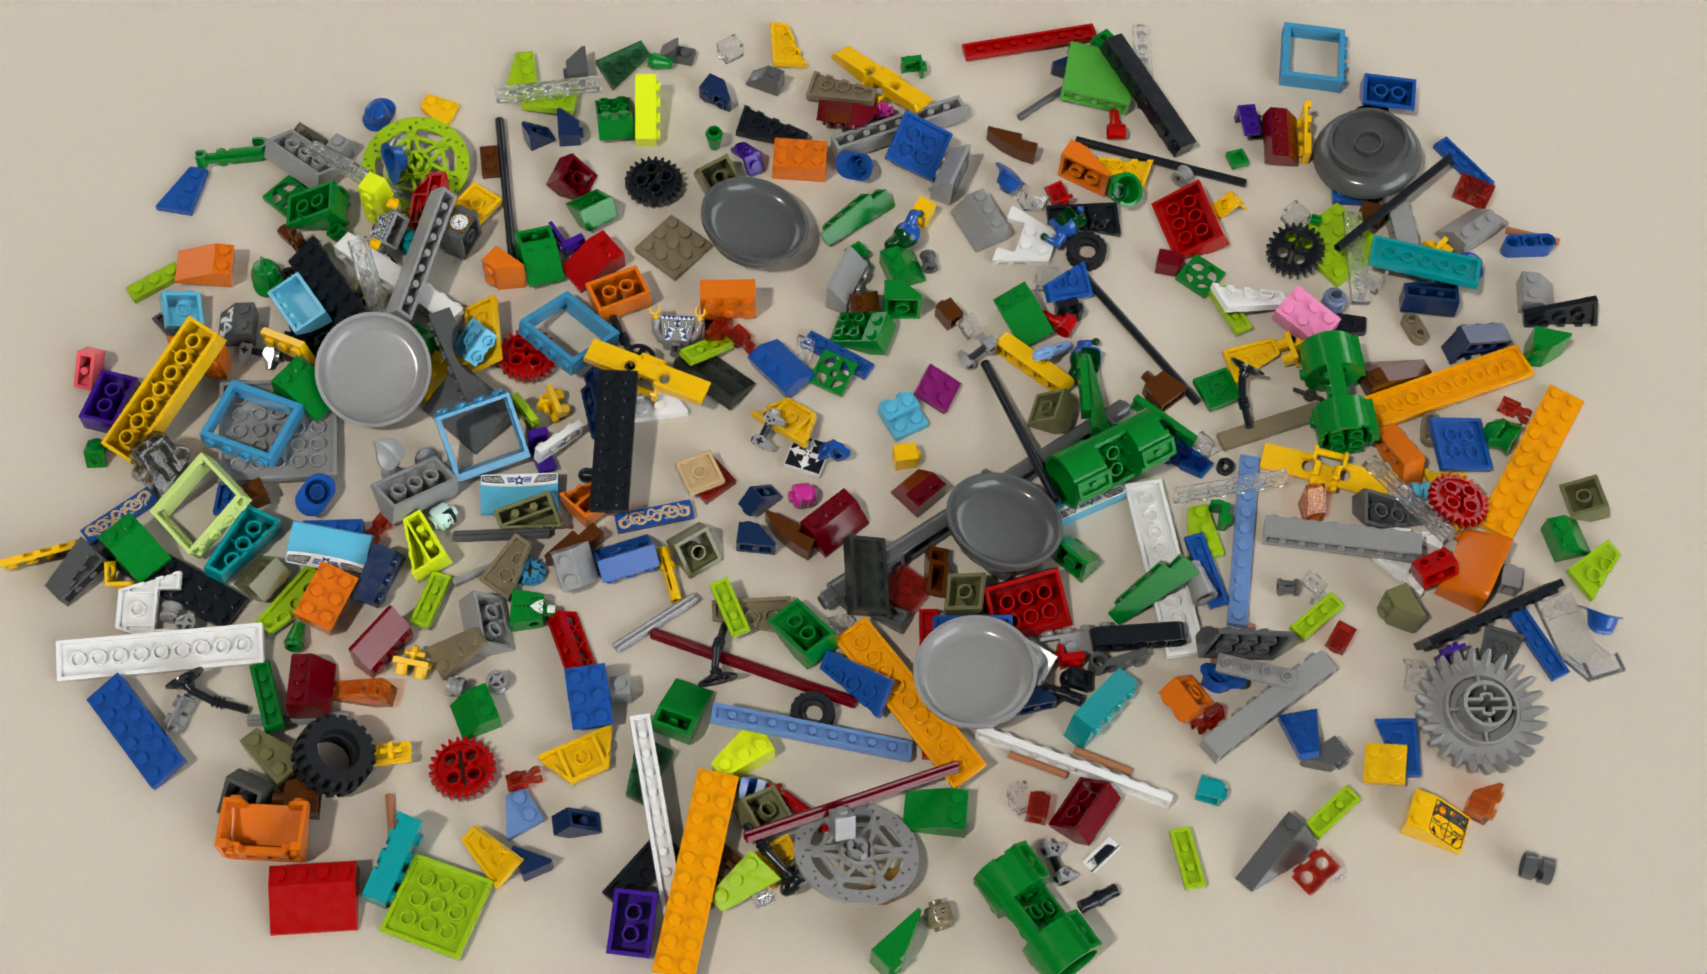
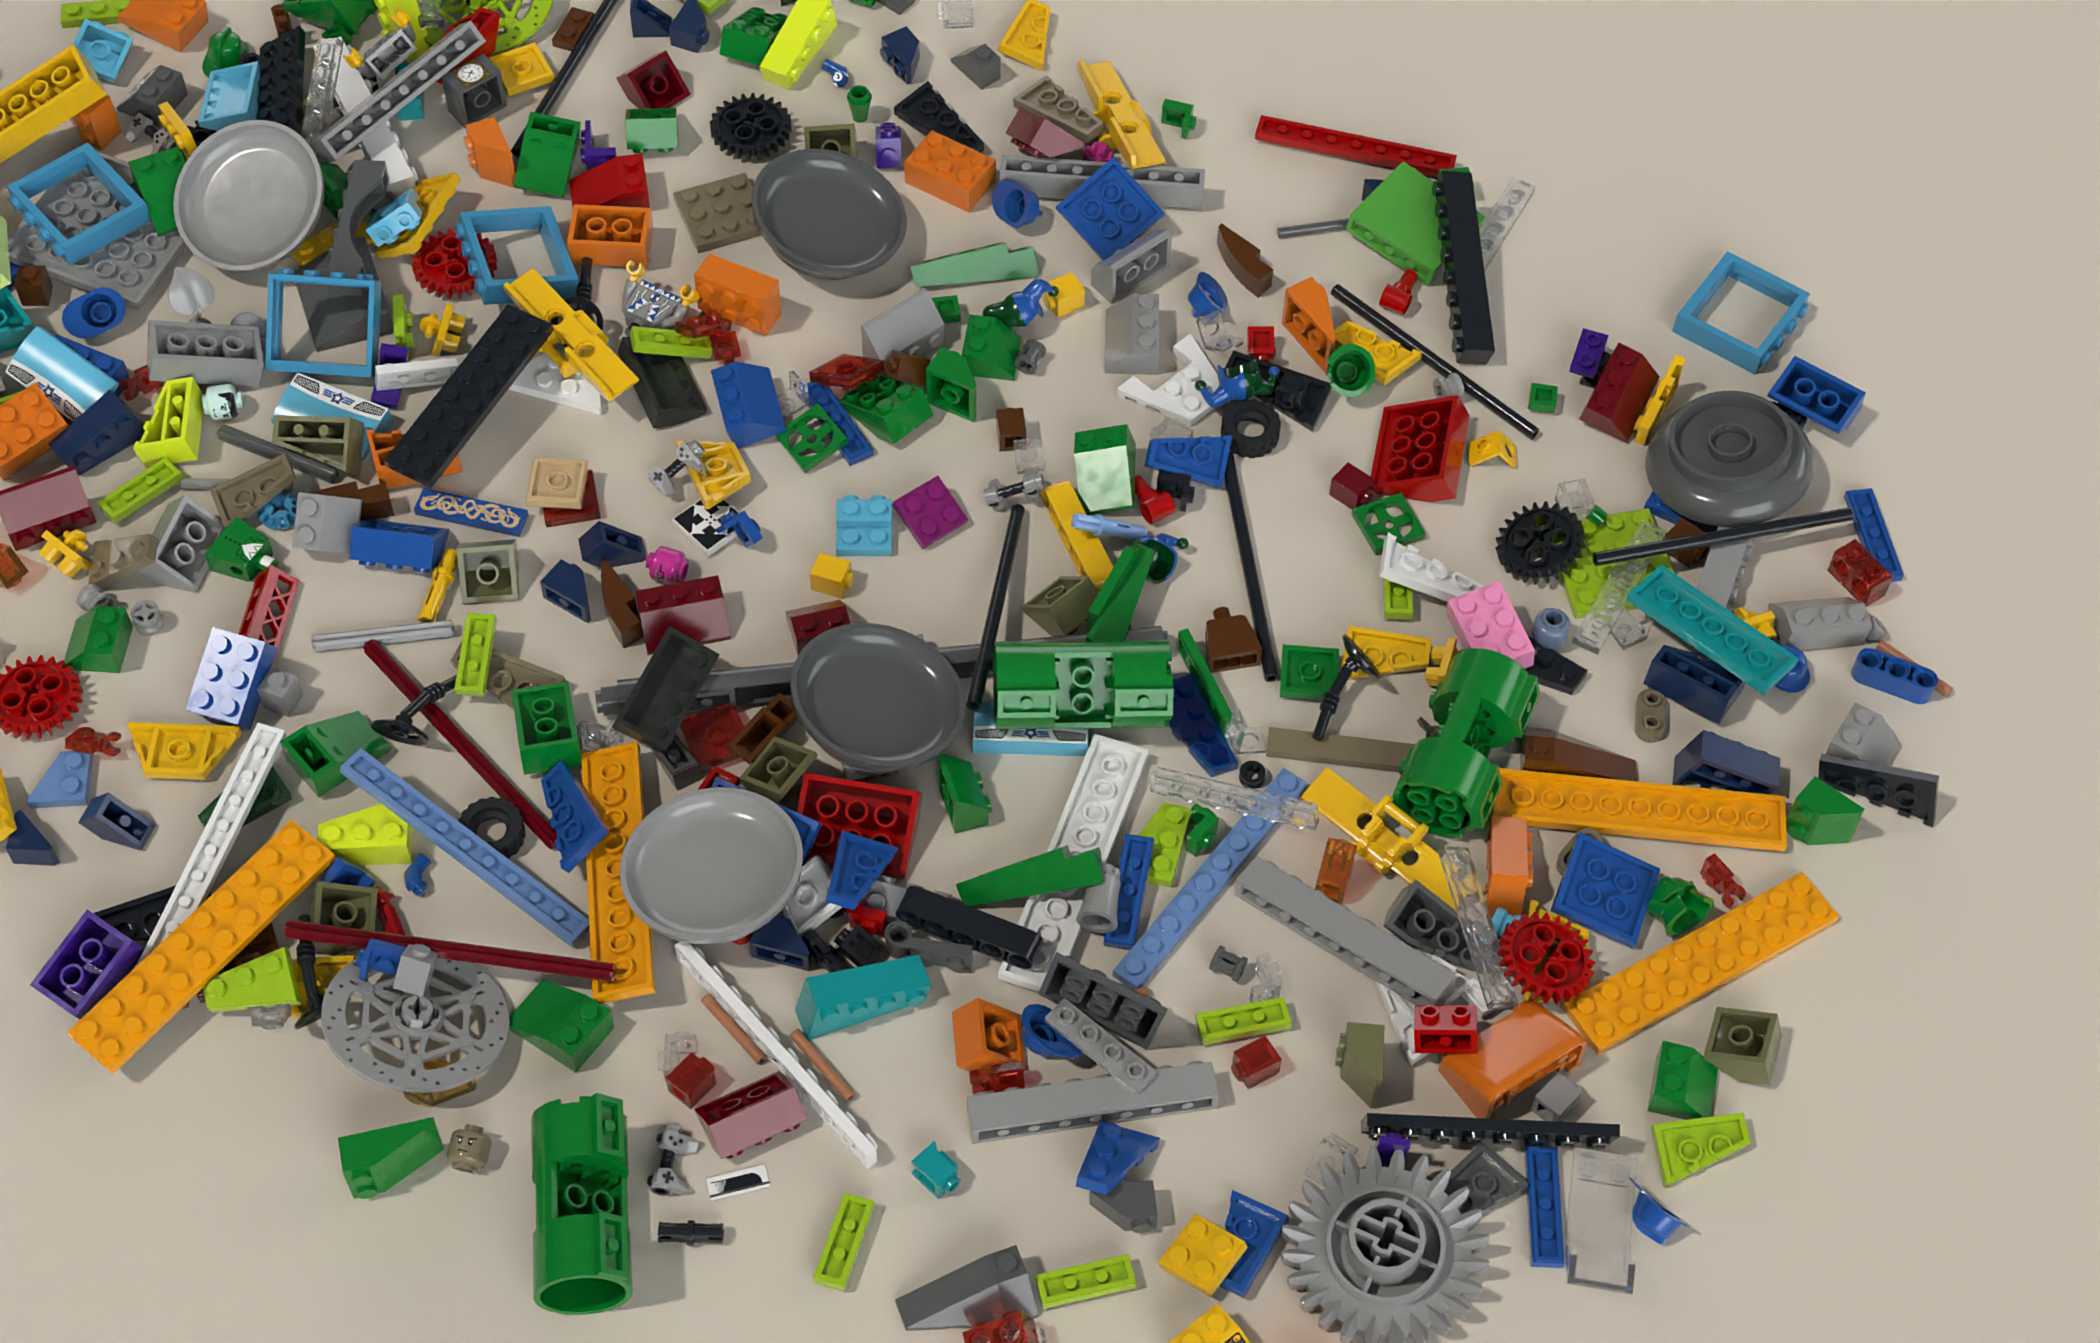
camera: 30 degrees right, 5 degrees down
(682, 121) = (839, 72): none -> blue arm
(784, 766) = (413, 875): none -> blue arm
(814, 826) = (379, 957): none -> blue bracket
(828, 320) = (847, 371): none -> clear red plate
(1051, 632) = (857, 868): none -> blue wing

